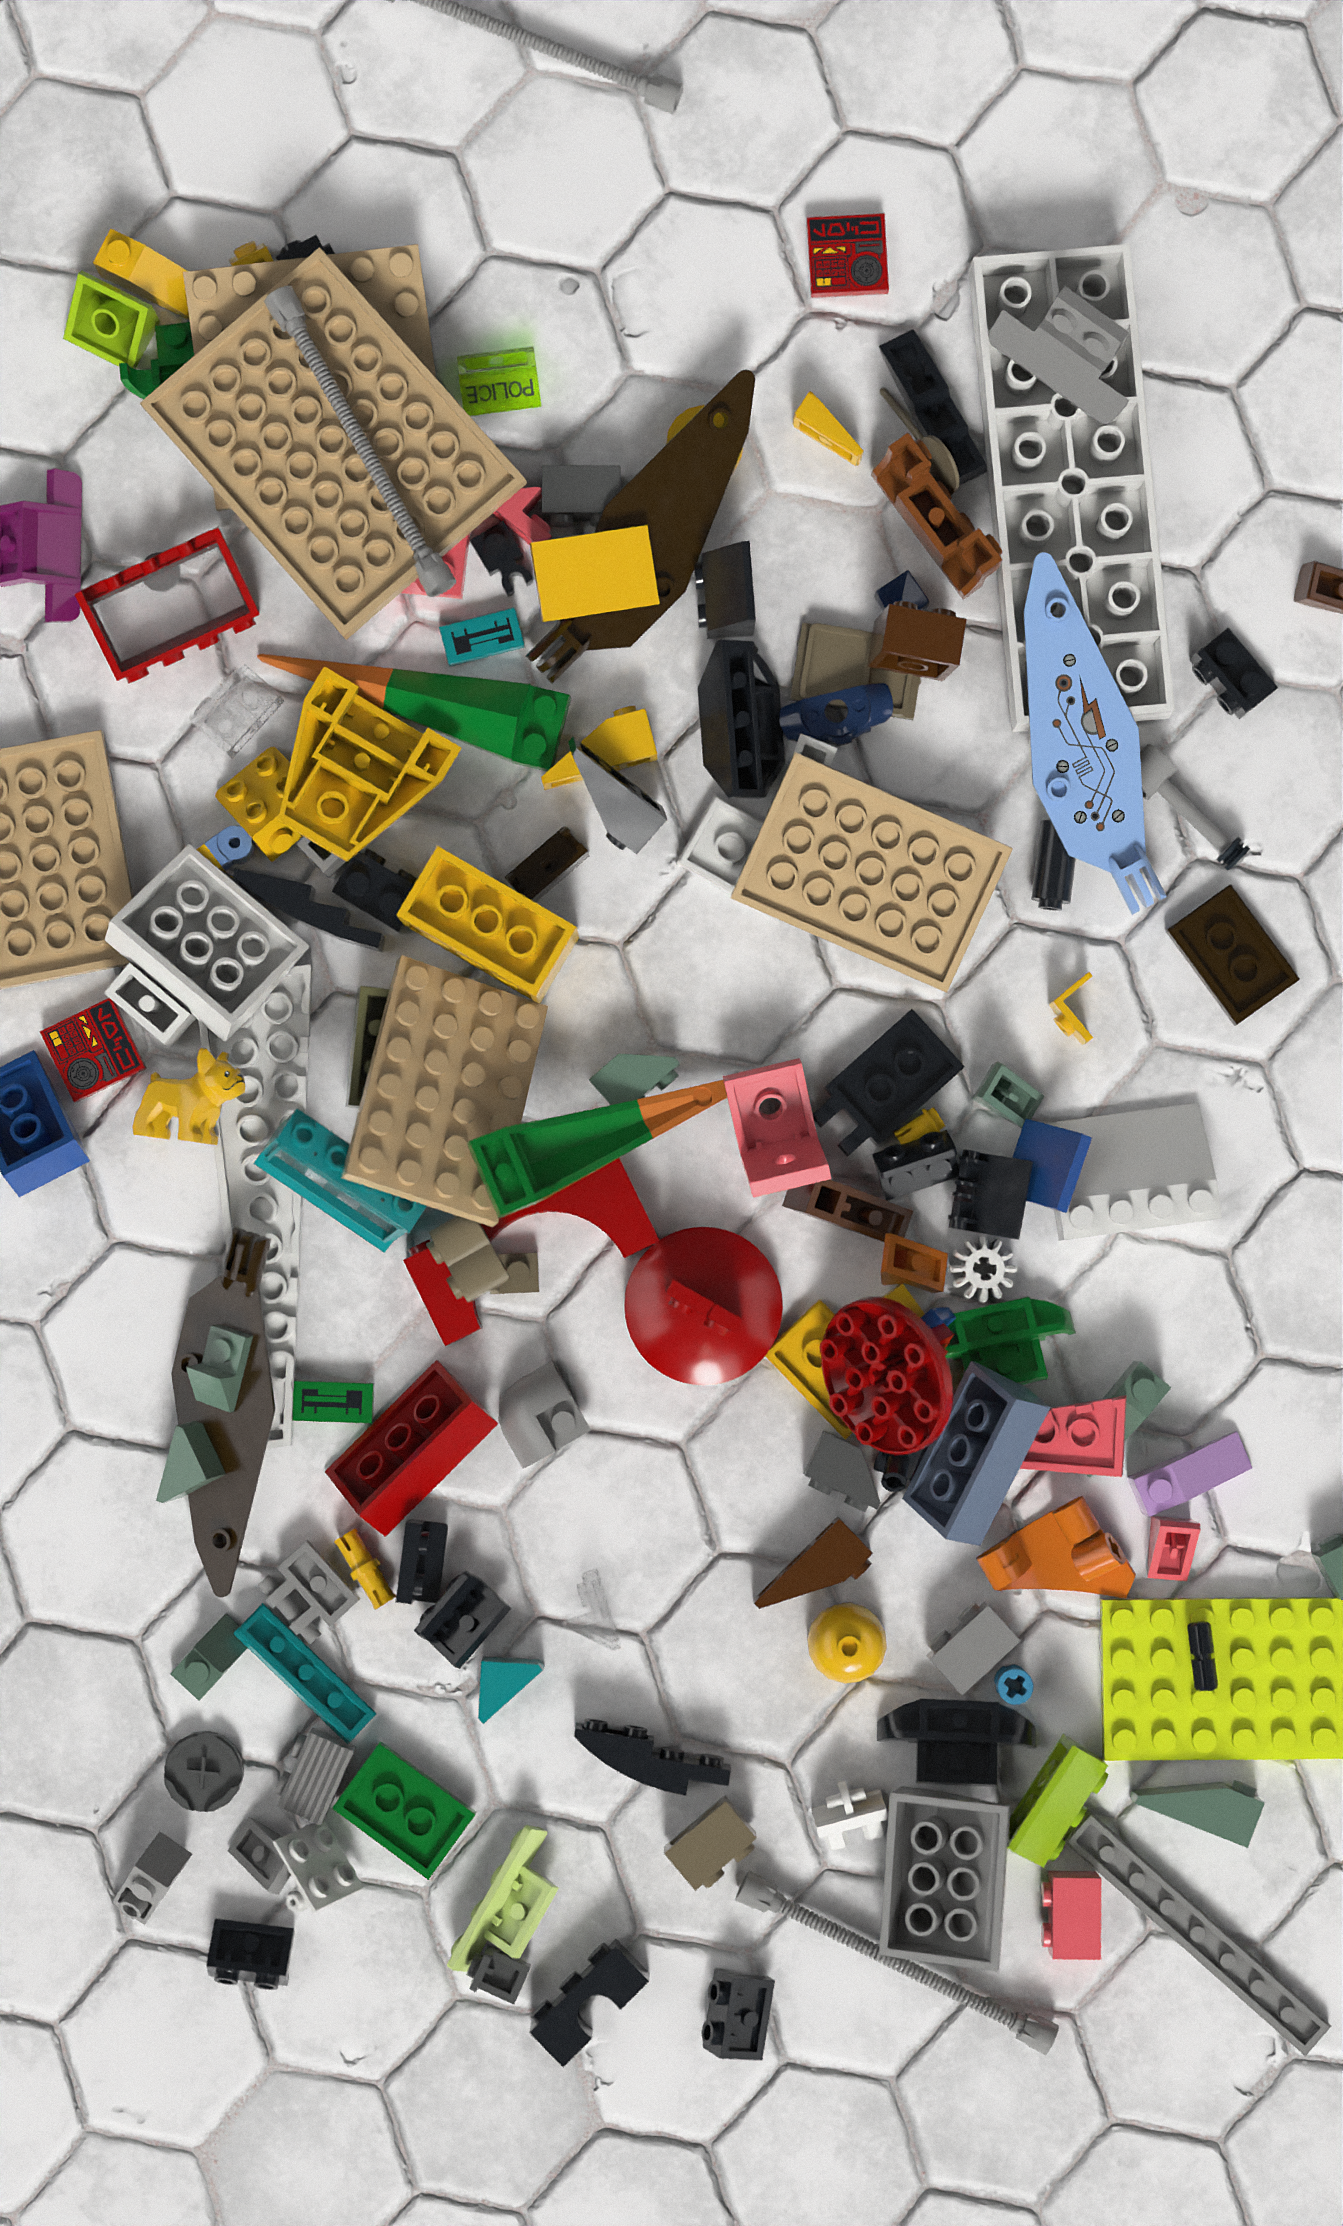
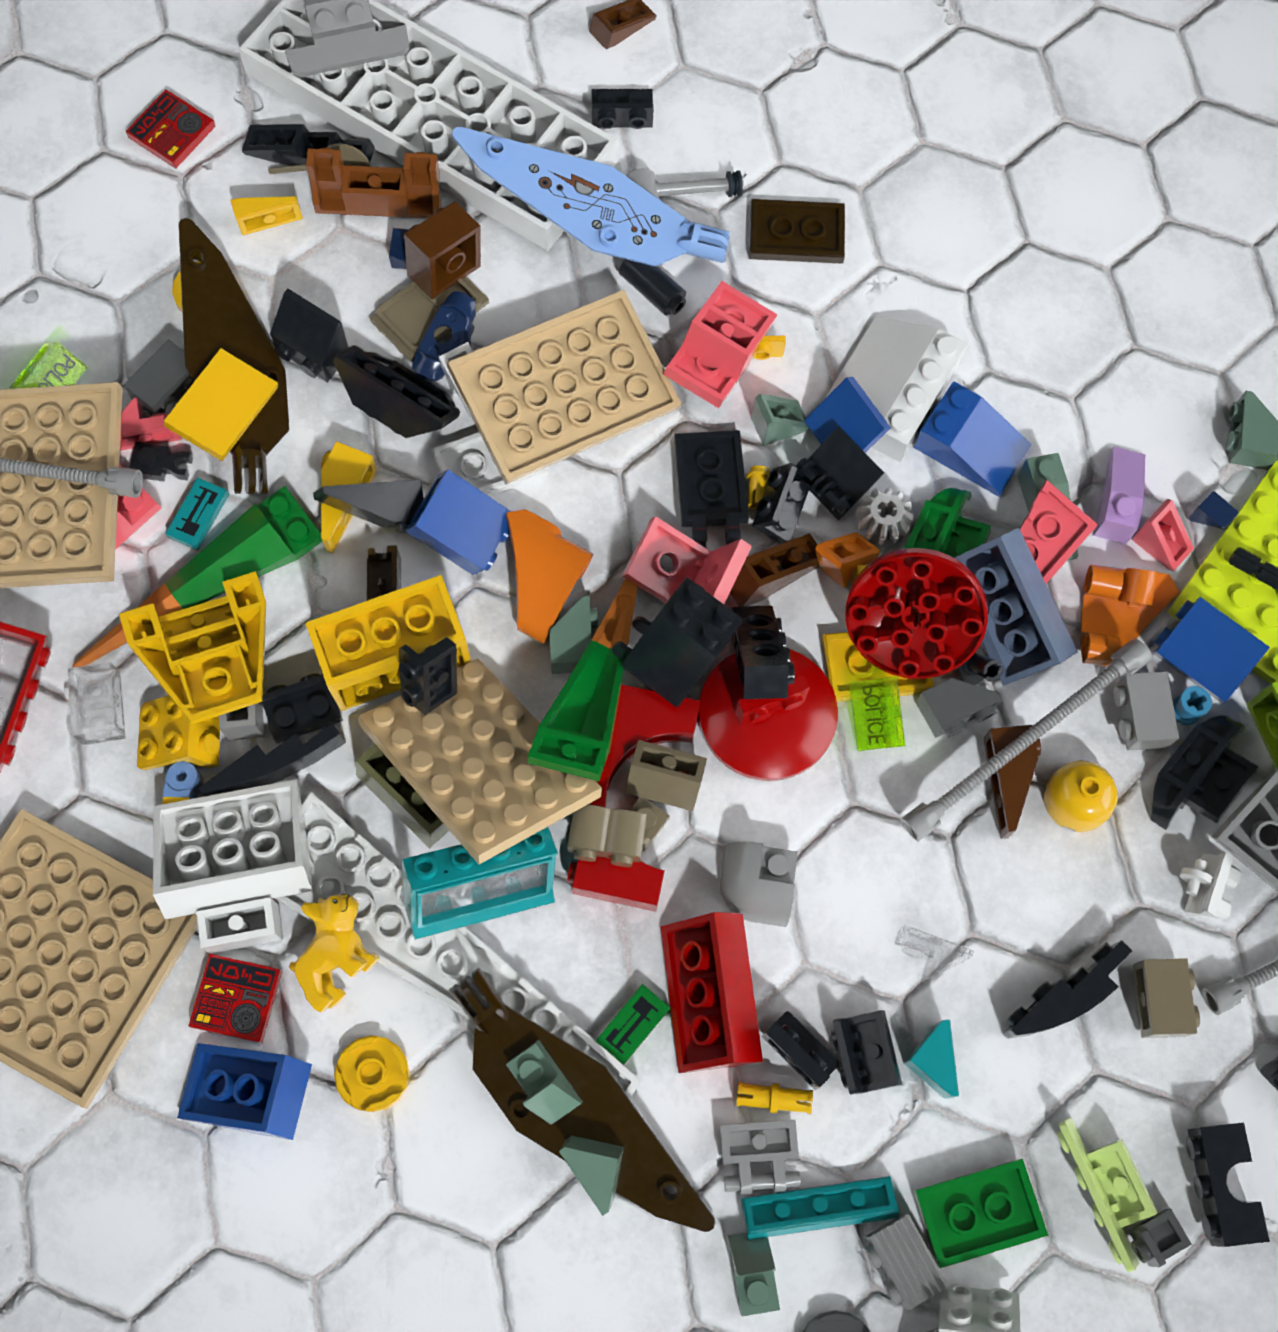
camera: 55 degrees left, 15 degrees down
(137, 1215) = (383, 1080): none -> yellow tile
(478, 995) = (430, 676): none -> black bracket
(567, 1262) = (665, 775): none -> dark tan brick
(657, 889) = (460, 523): none -> brick
(676, 1001) = (544, 570): none -> orange panel
(690, 1184) = (679, 642): none -> black container
(739, 1260) = (762, 654): none -> black brick
(777, 1404) = (877, 714): none -> clear neon green panel
(999, 1597) = (926, 817): none -> light grey hose
(1031, 983) = (720, 344): none -> coral bracket
(1080, 1664) = (1209, 649): none -> blue brick
(1132, 1296) = (972, 439): none -> blue slope
(1234, 1577) = (1214, 512): none -> dark blue slope

